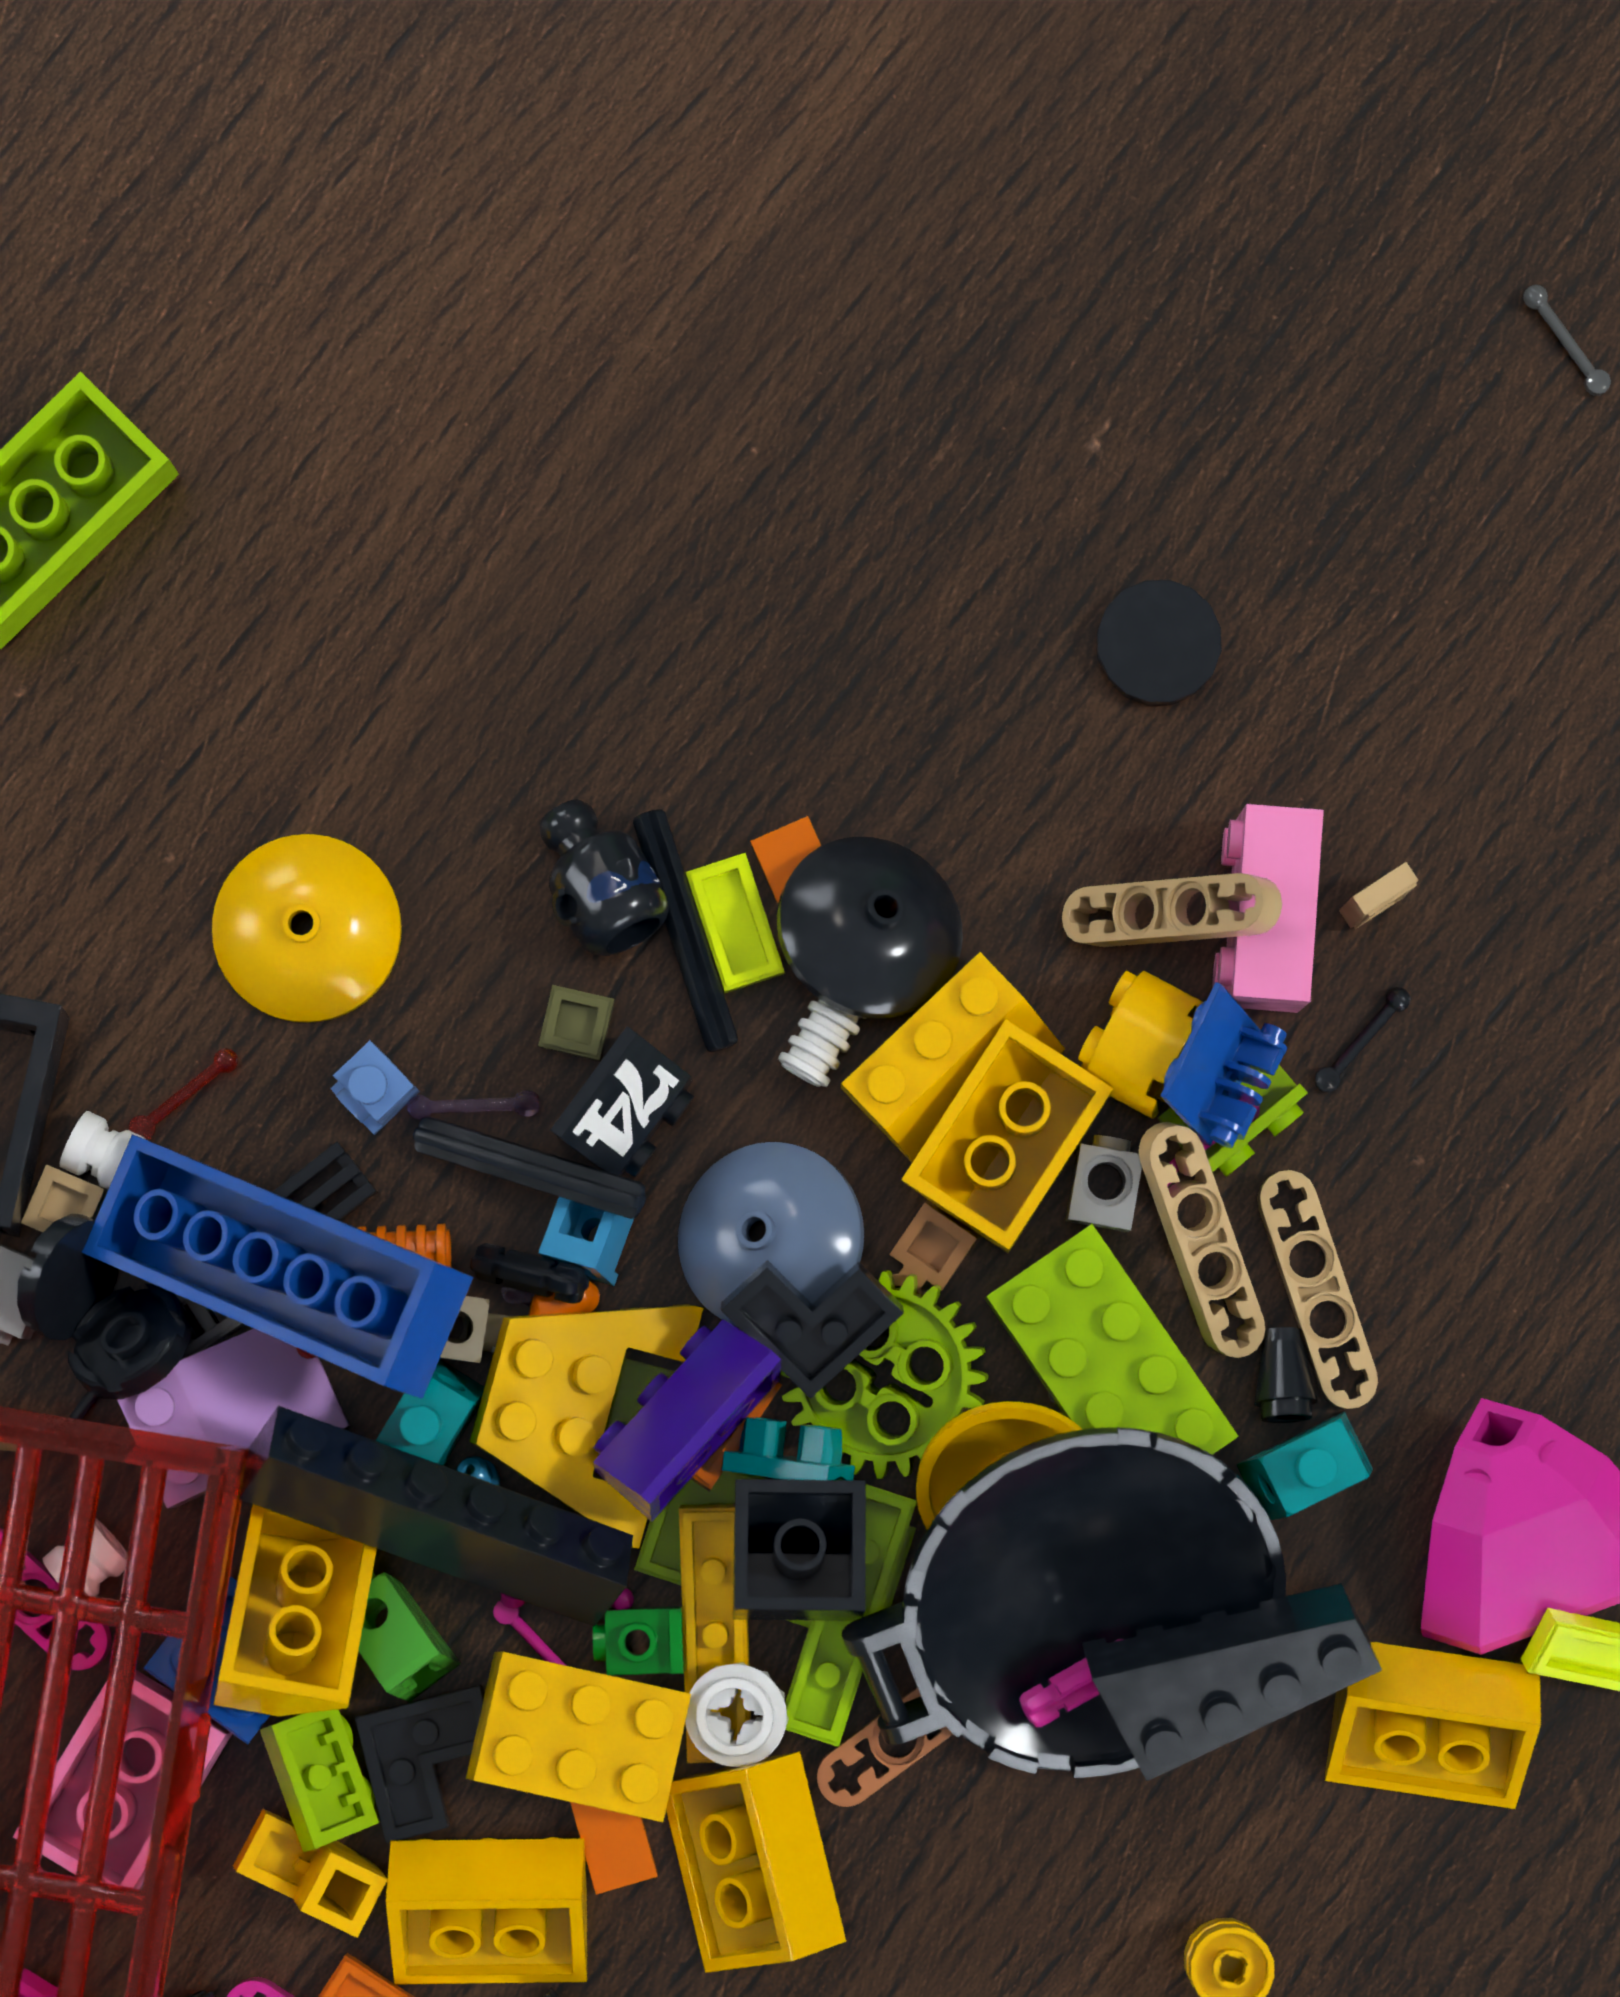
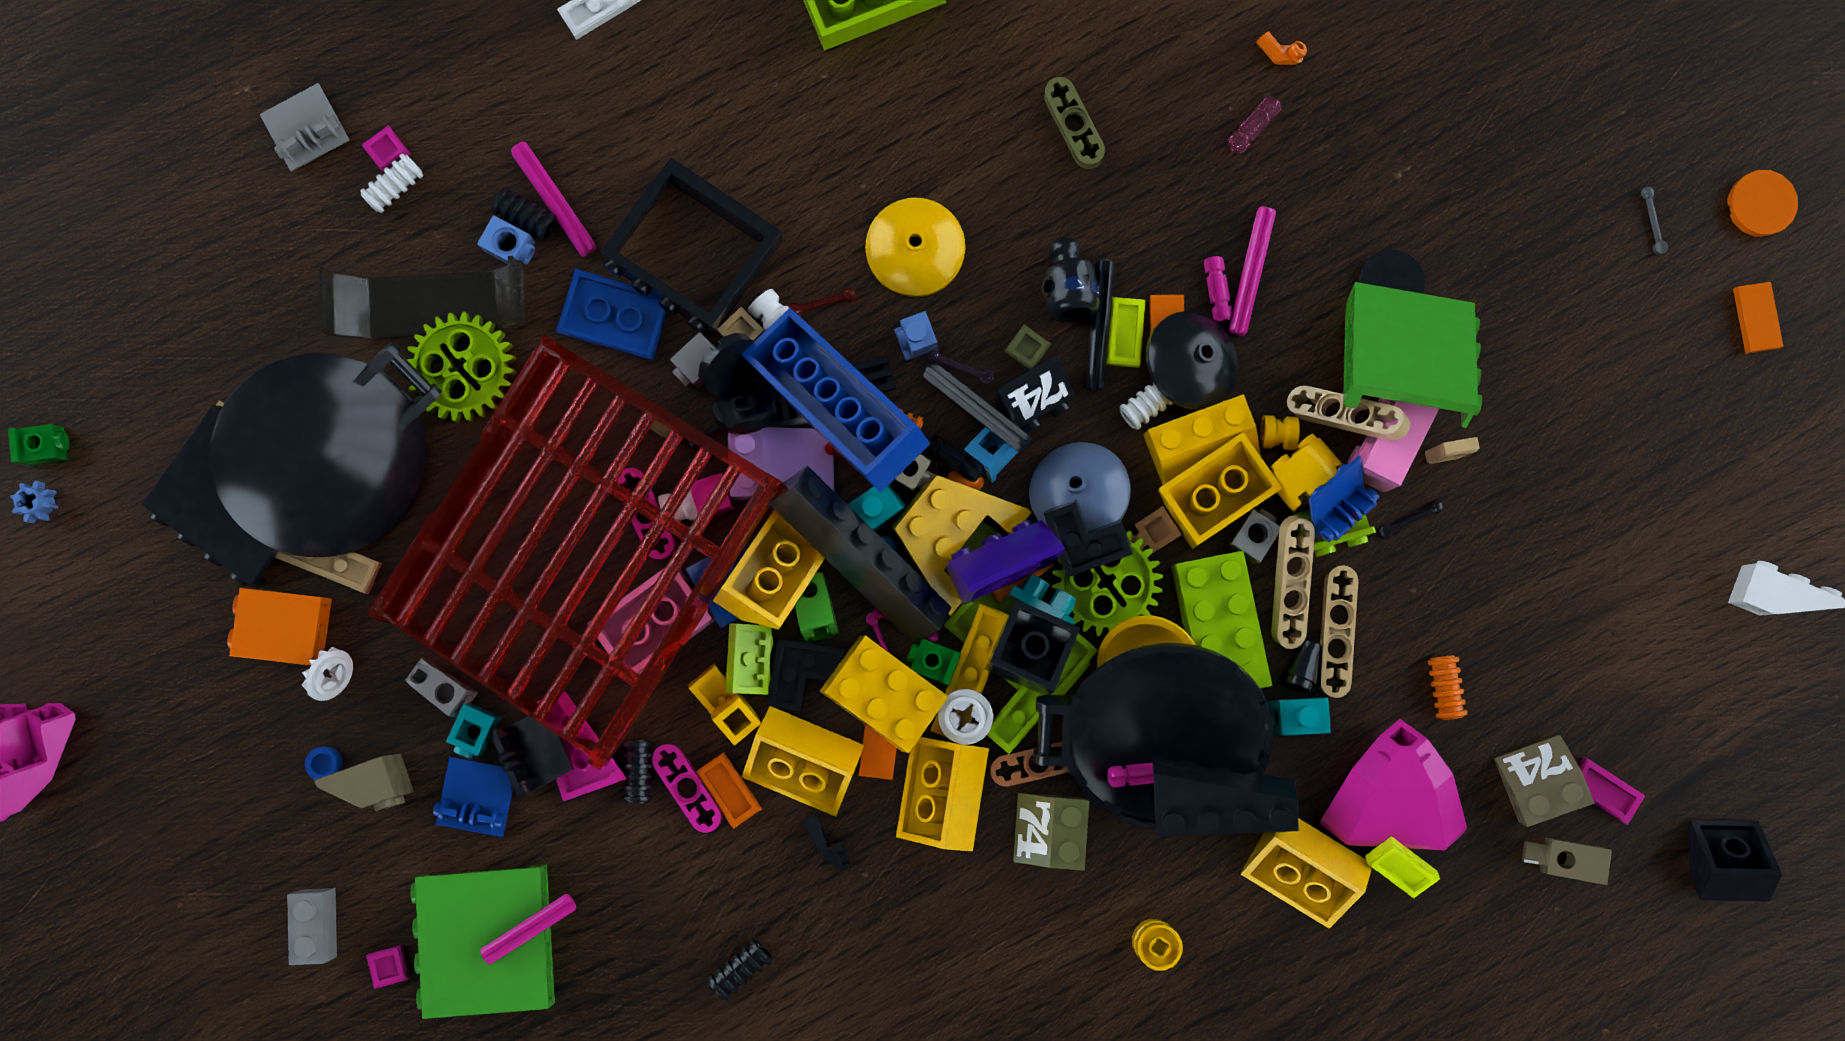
camera: 20 degrees right, 0 degrees up
(116, 1517) = (702, 490): none -> dark pink brick
(467, 551) = (1072, 97): none -> olive beam
(803, 319) = (1282, 54): none -> orange arm
(807, 464) = (1254, 124): none -> clear pink axle
(864, 780) = (1218, 289): none -> dark pink axle
(909, 723) = (1252, 271): none -> dark pink axle
(967, 1847) = (1051, 831): none -> olive slope
(1066, 989) = (1275, 432): none -> yellow wheel
(1236, 754) = (1411, 350): none -> bright green panel
(1543, 1307) = (1447, 687): none -> orange piece

